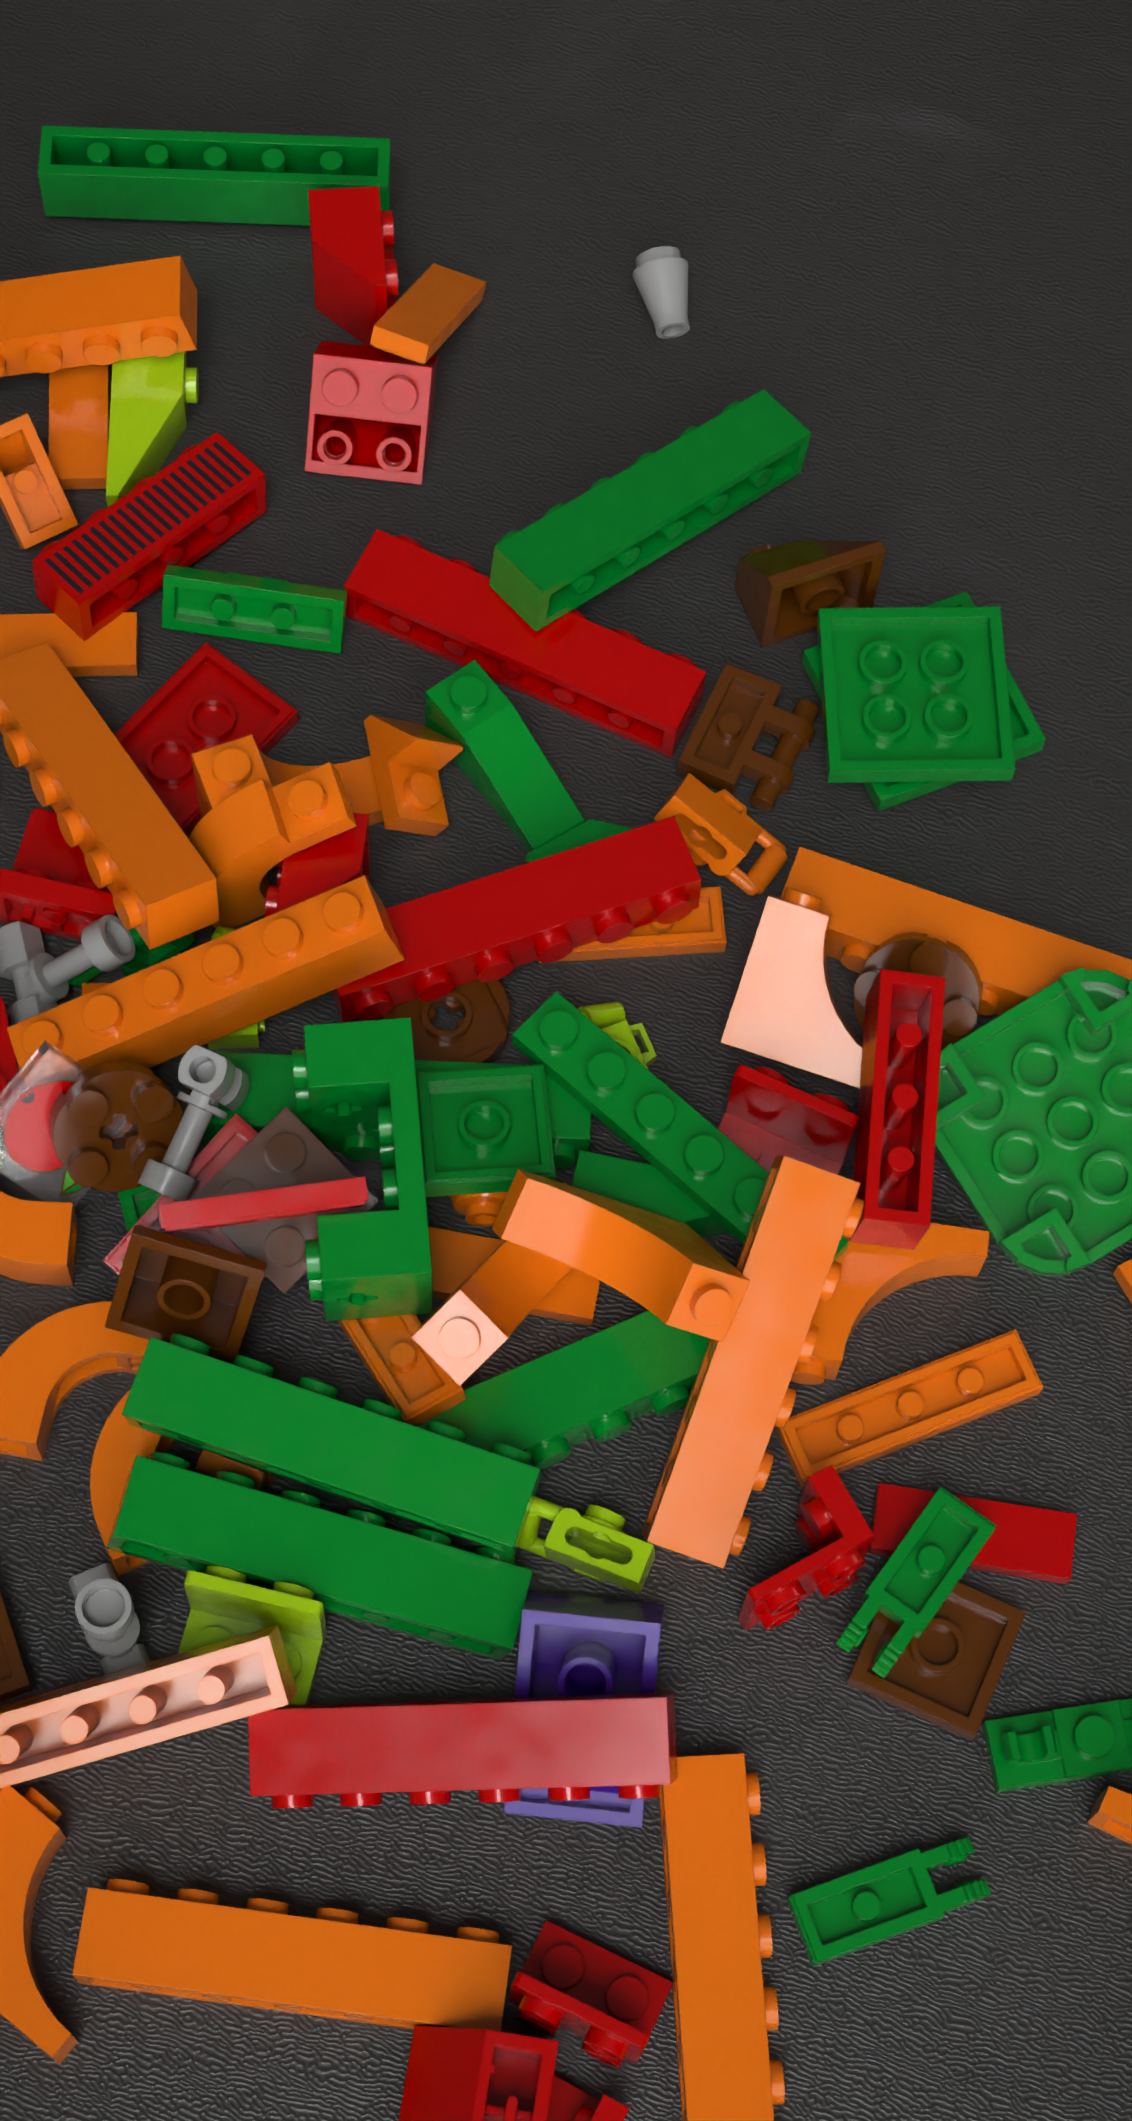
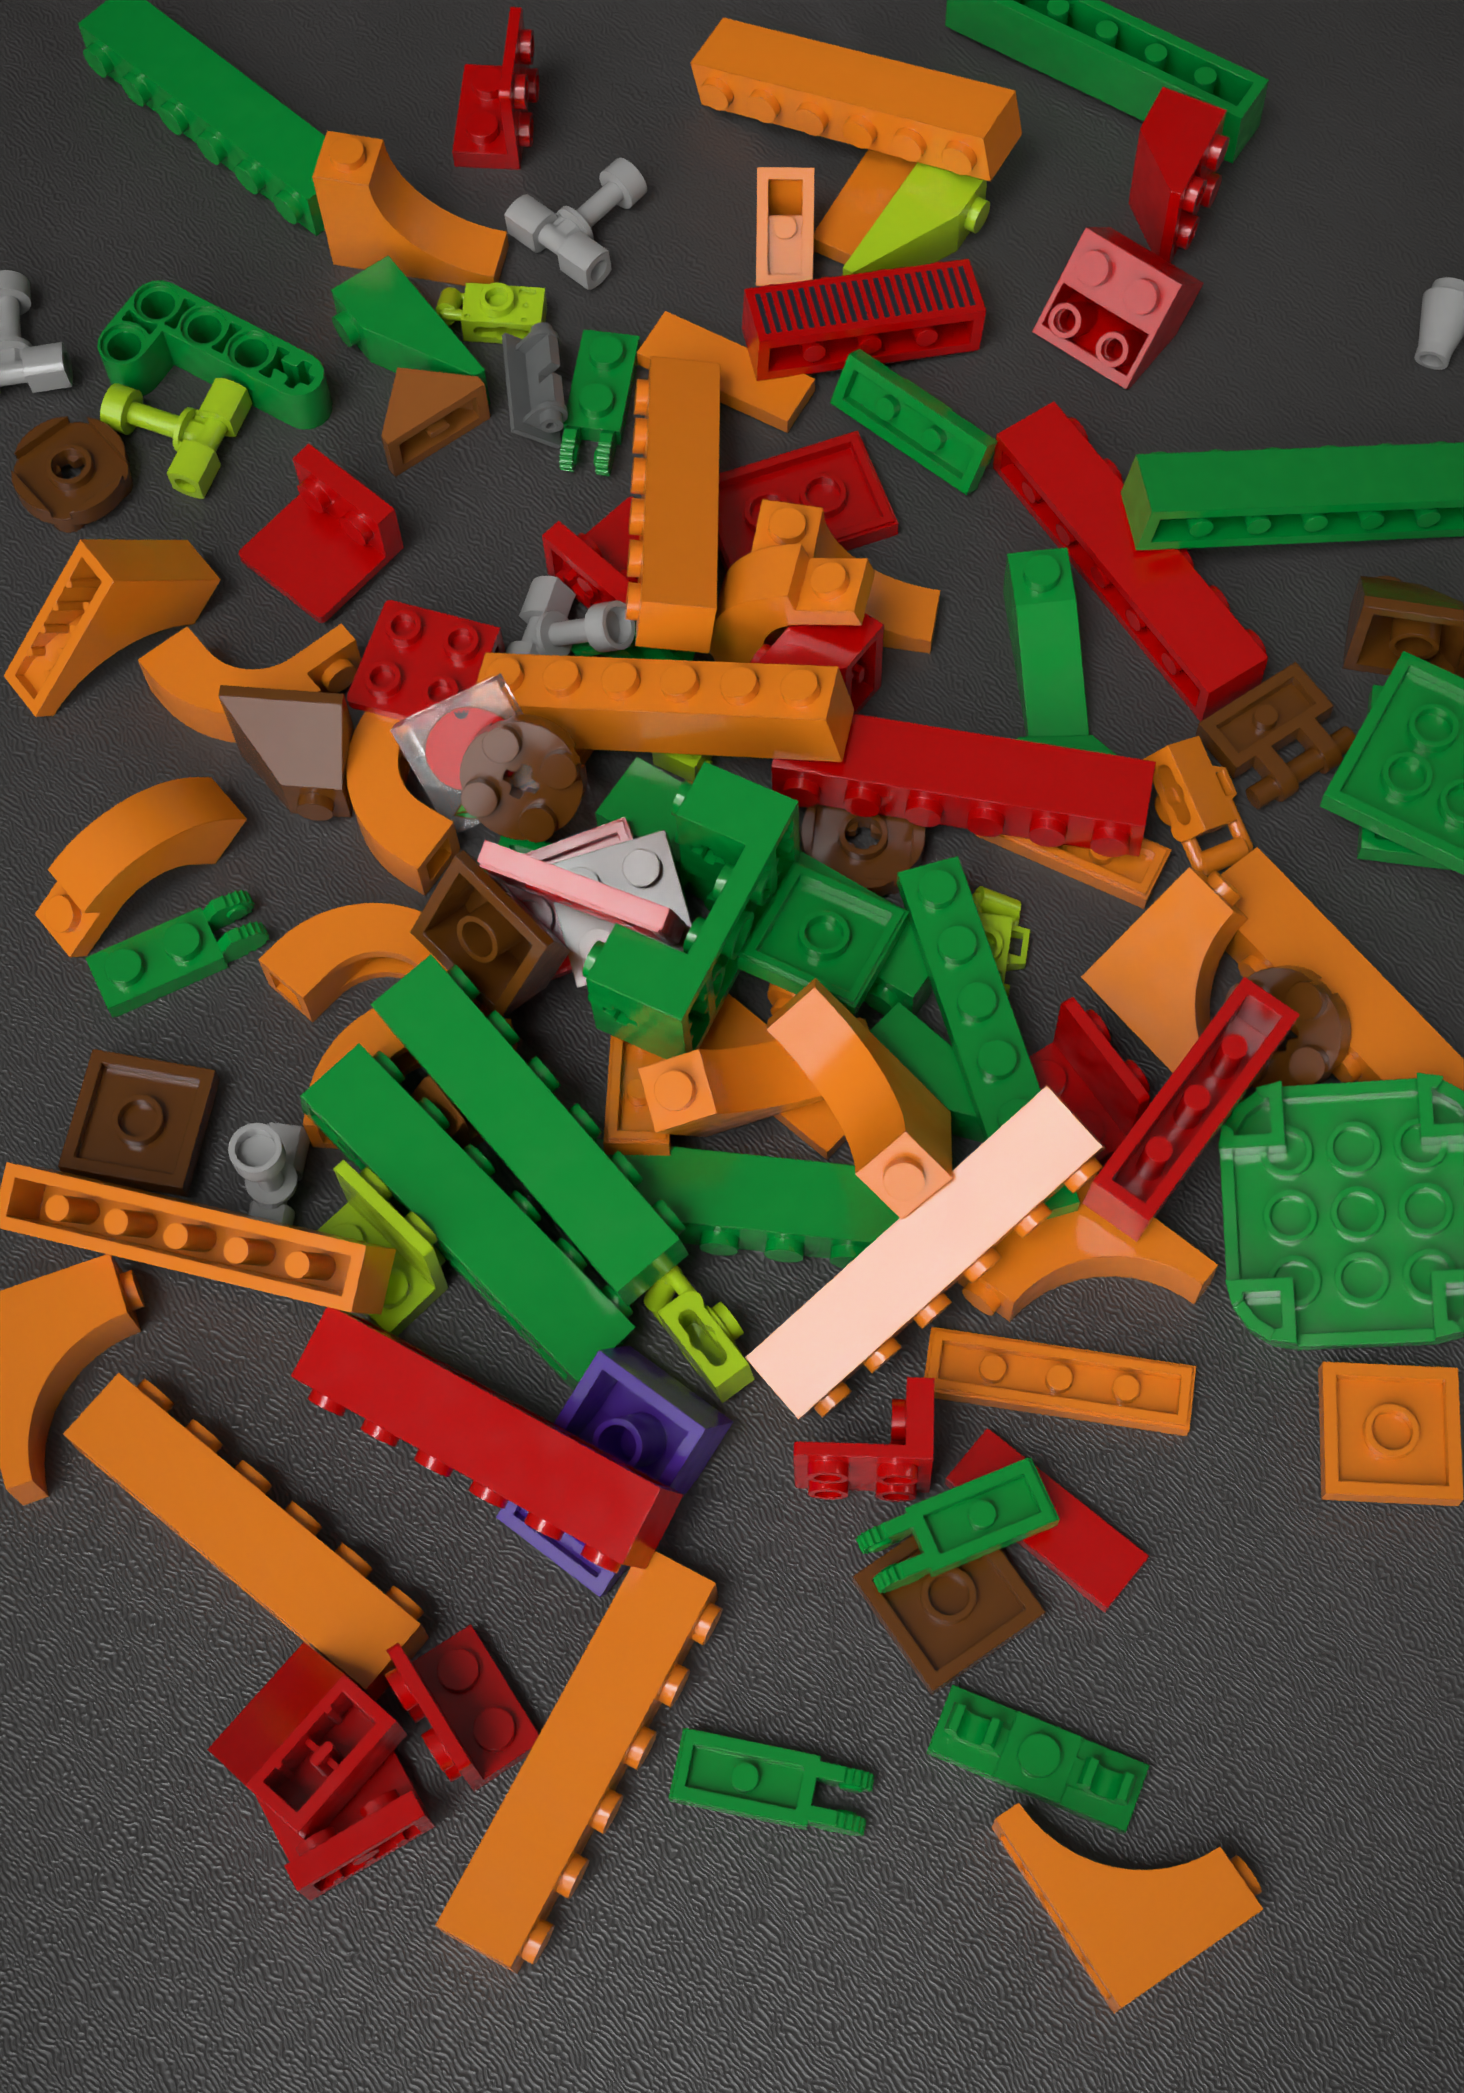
camera: 40 degrees right, 0 degrees up
(213, 1084) = (608, 779): light grey bar -> none
(407, 775) = (956, 620): orange slope -> none
(427, 313) = (1213, 243): orange tile -> none

